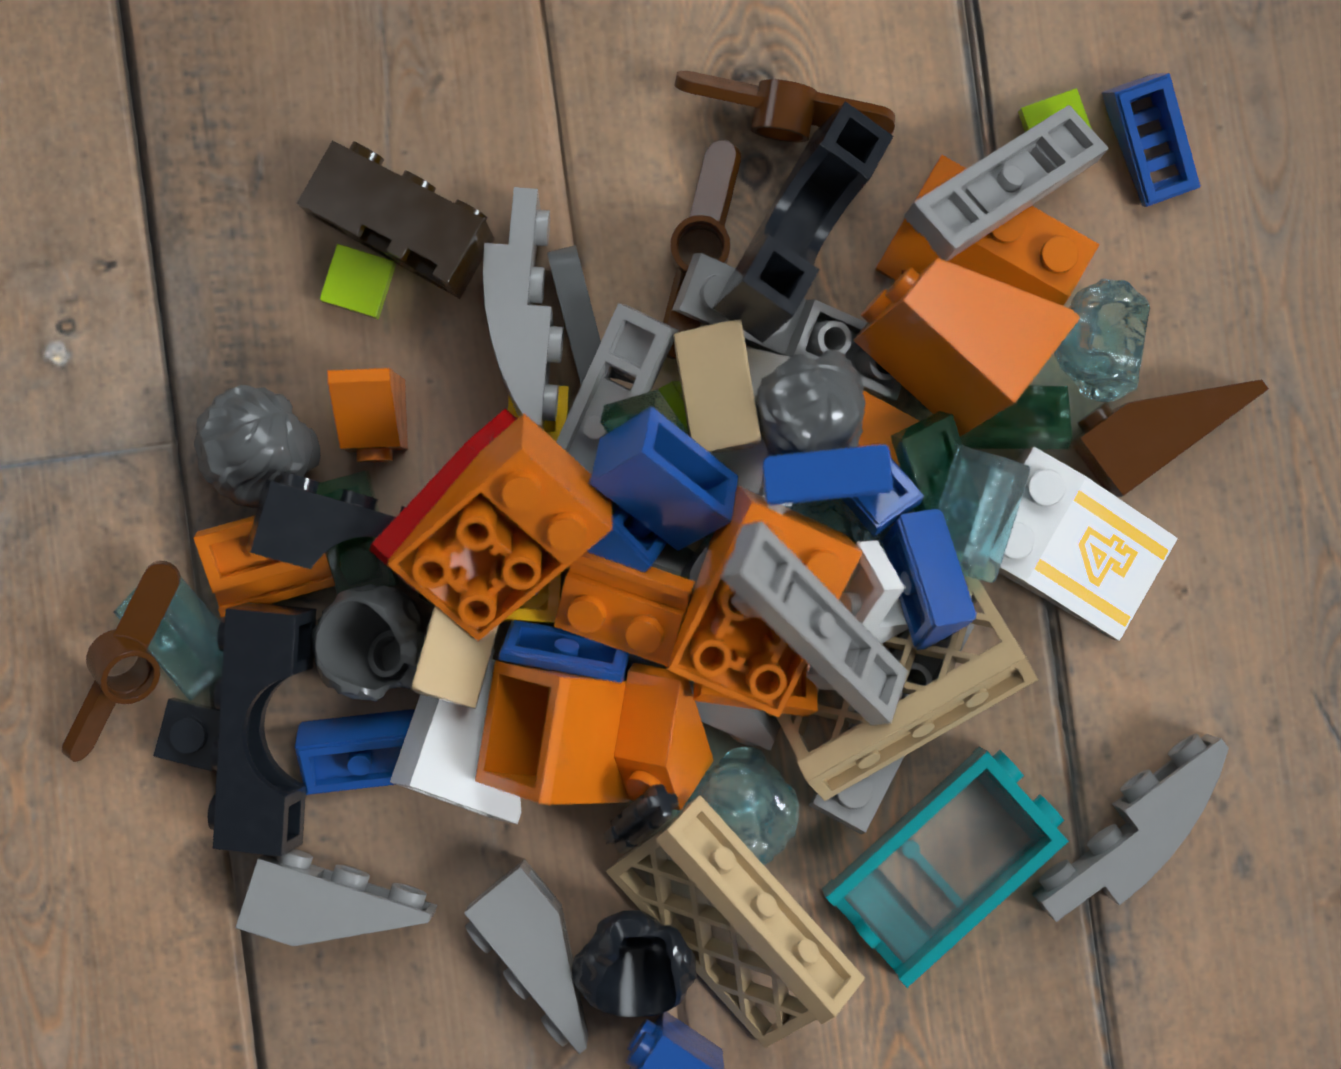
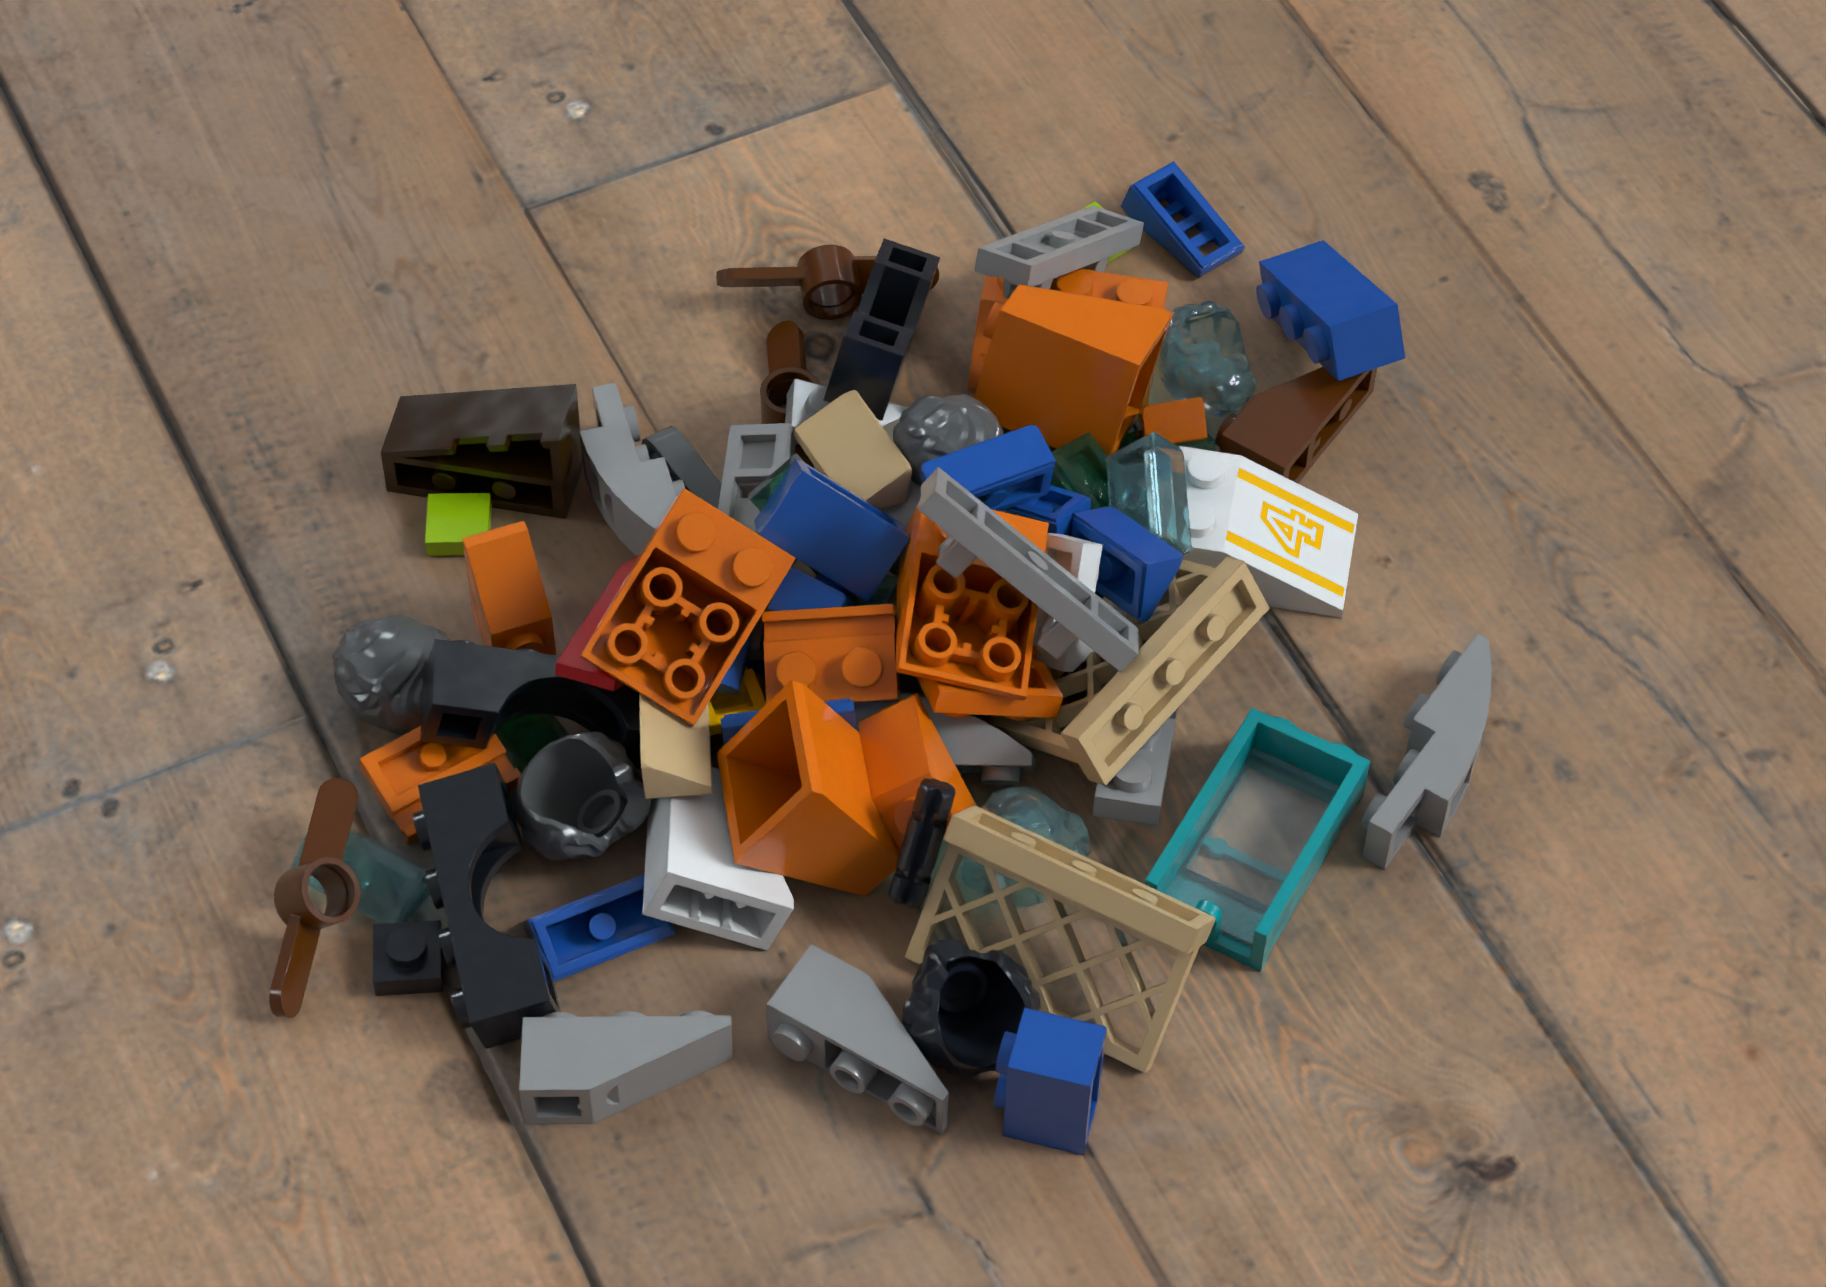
camera: 20 degrees left, 35 degrees down
(1045, 404) = (1175, 420): none -> orange slope
(1241, 327) = (1330, 310): none -> blue brick

